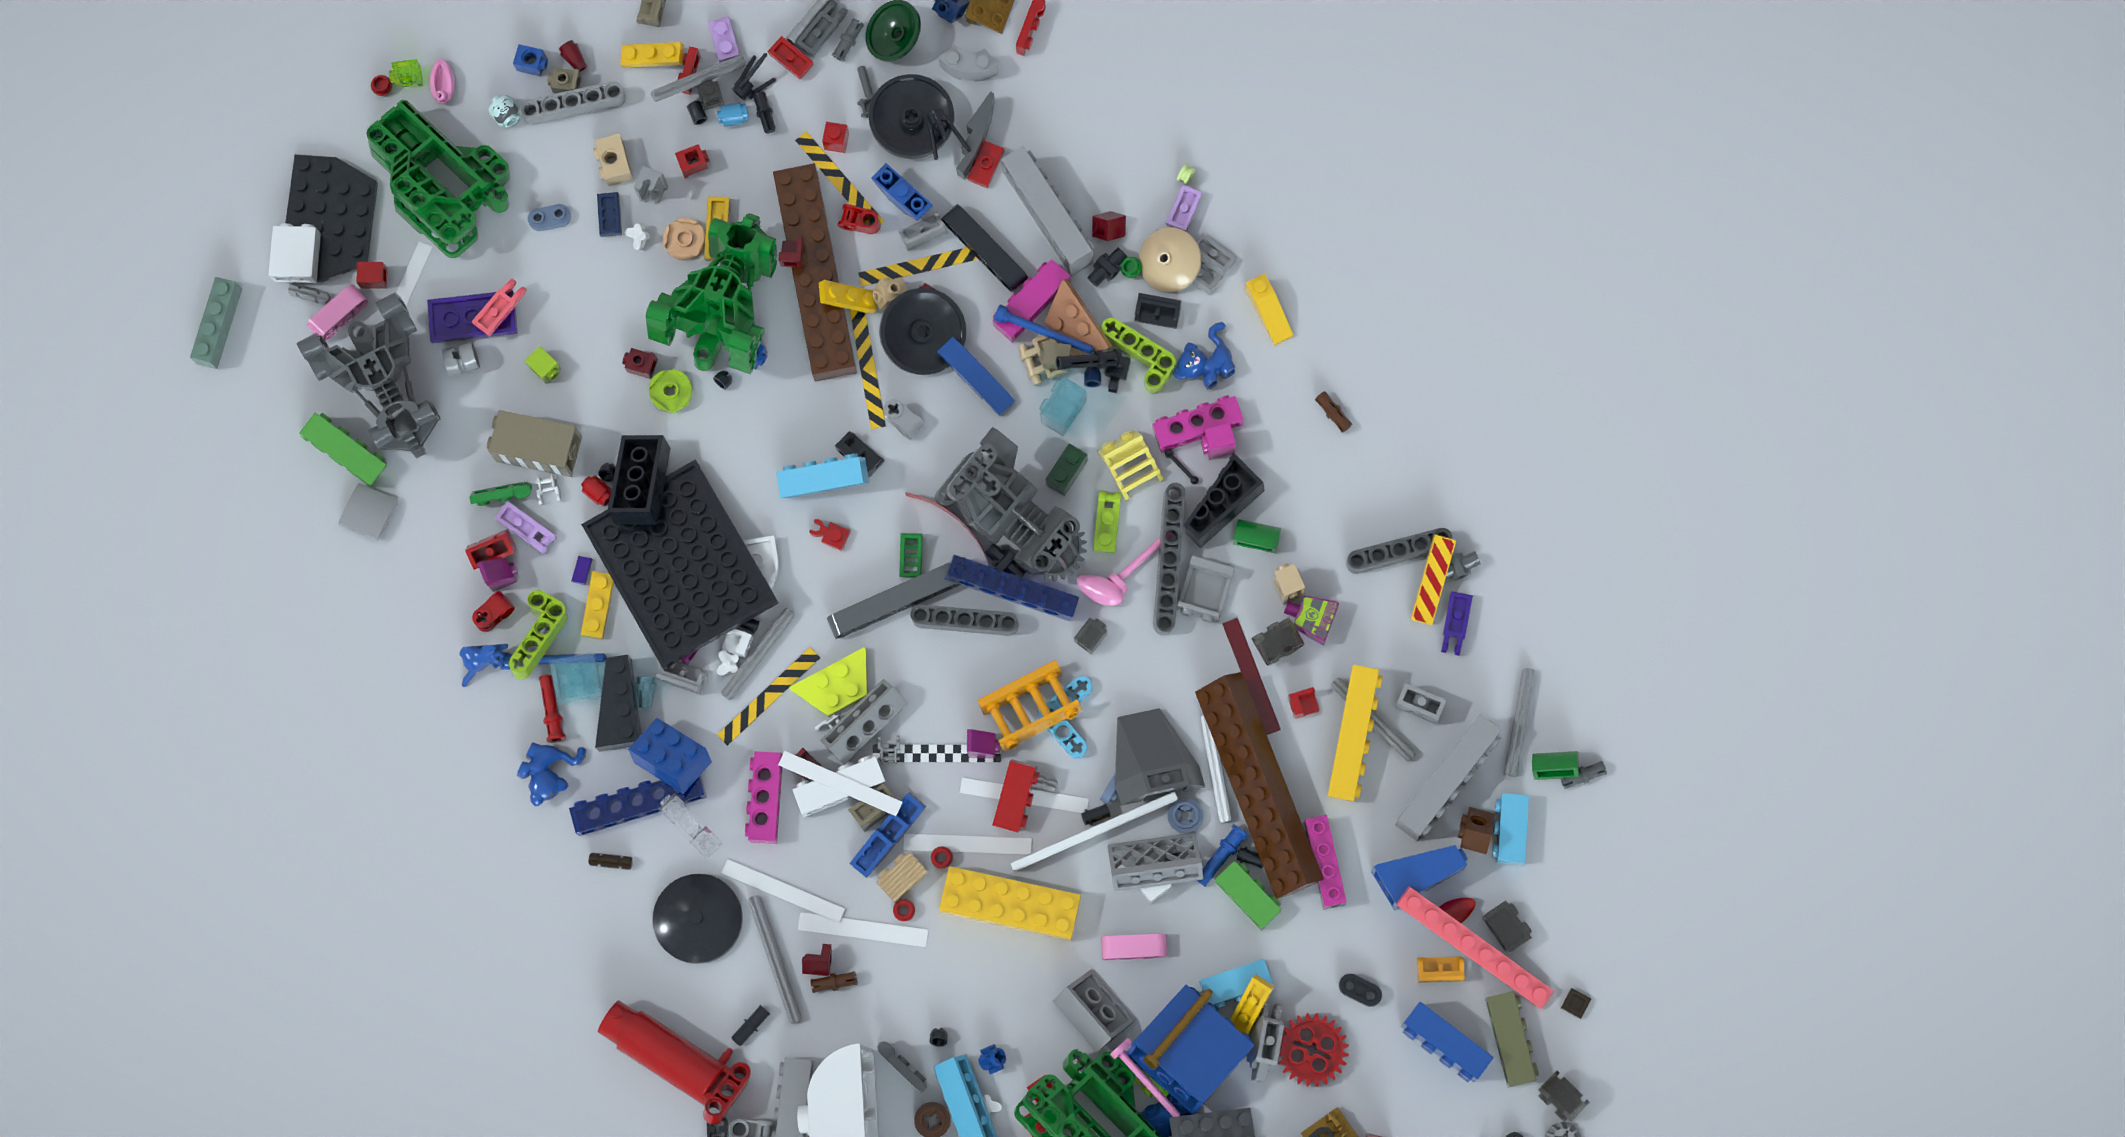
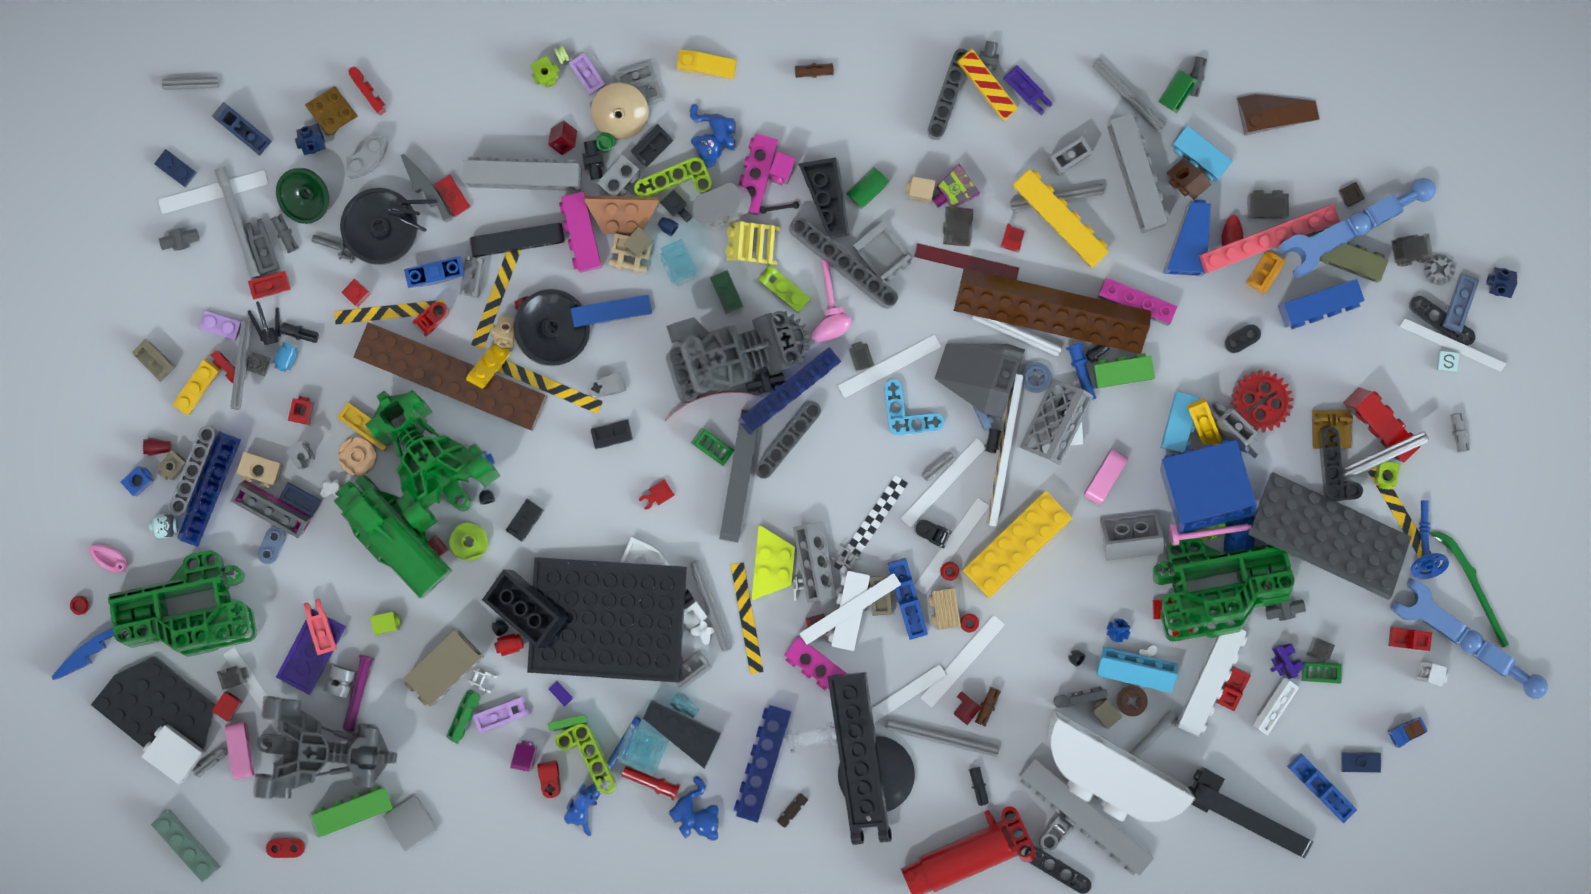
camera: 60 degrees left, 10 degrees up
(271, 414) = (285, 849): none -> red plate
(333, 117) = (81, 656): none -> blue slope
(402, 262) = (233, 677): none -> clear smoke brick
(406, 73) = (83, 580): clear neon green brick -> none
(461, 383) = (357, 692): none -> magenta axle
(491, 548) = (501, 750): red brick -> none
(554, 591) = (567, 723): none -> bright green tile
(564, 125) = (208, 489): none -> clear blue brick
(582, 192) = (270, 509): none -> dark grey piece
(597, 605) = (595, 699): yellow plate -> none
(620, 324) = (389, 537): none -> green connector
(670, 755) = (747, 718): blue brick -> none
(697, 112) = (264, 383): black hinge -> none
(701, 886) = (858, 755): none -> black hinge
(724, 428) = (524, 520): none -> black hinge
(792, 253) = (428, 384): dark red panel -> none
(822, 477) = (613, 473): medium azure brick -> none
(903, 1101) = (1106, 713): none -> dark tan brick
(967, 817) = (933, 533): none -> black piece
(982, 744) = (889, 488): magenta slope -> none
(1004, 315) = (582, 259): blue piece -> none
(1016, 796) = (943, 488): red brick -> none
(1029, 684) = (867, 424): light orange fence -> none
(1098, 360) = (662, 214): black pin -> none
(1101, 669) = (889, 366): none -> white sticker
(1108, 295) = (614, 174): none -> light grey brick
(1145, 408) = (722, 205): none -> light grey brick
(1152, 1060) = (1204, 519): pearl gold bar -> none
(1158, 169) = (540, 67): none -> lime brick
(1547, 1024) = (1356, 225): none -> medium blue piece
(1599, 870) = (1268, 113): none -> reddish brown wedge

